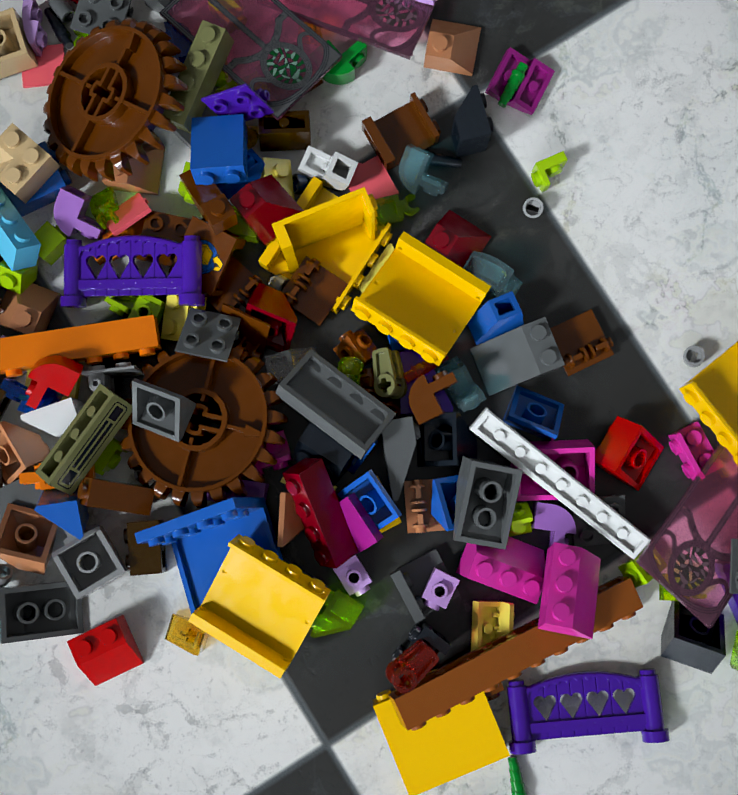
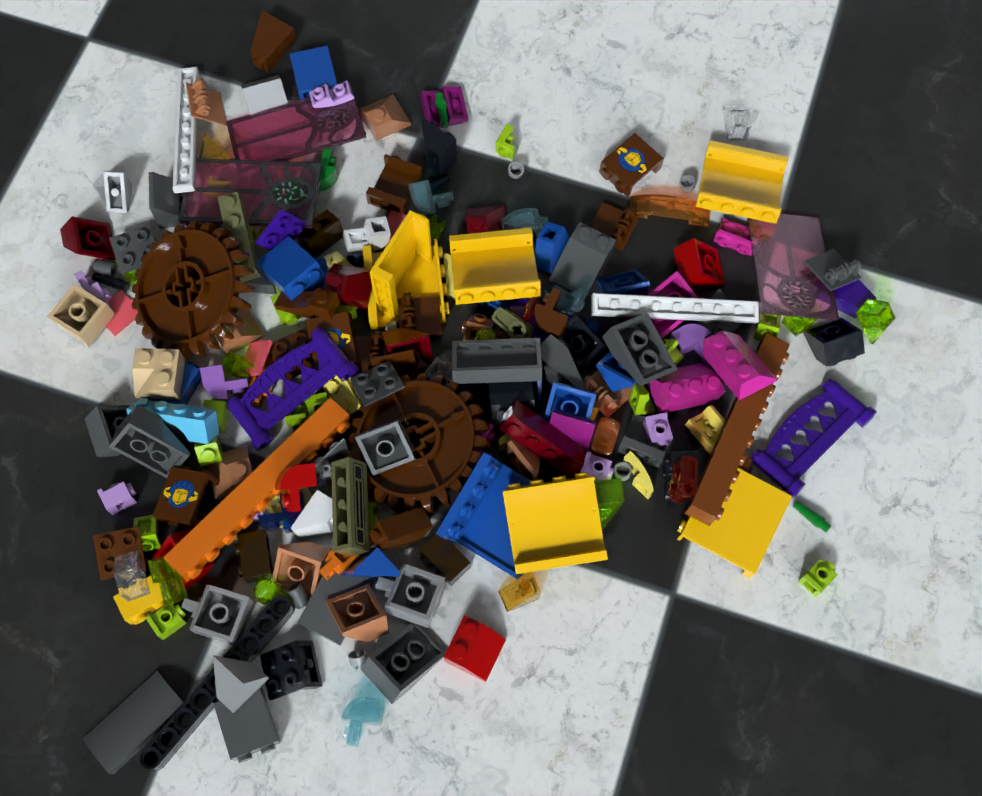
camera: 40 degrees left, 15 degrees down
(380, 593) = (622, 468): none -> light grey hinge
(386, 553) = (605, 436): none -> clear orange gear
(386, 619) = (642, 480): none -> light yellow slope
(449, 549) = (640, 400): none -> lime bracket
(651, 367) = (670, 207): none -> clear orange slope
(653, 291) = (630, 164): none -> reddish brown panel

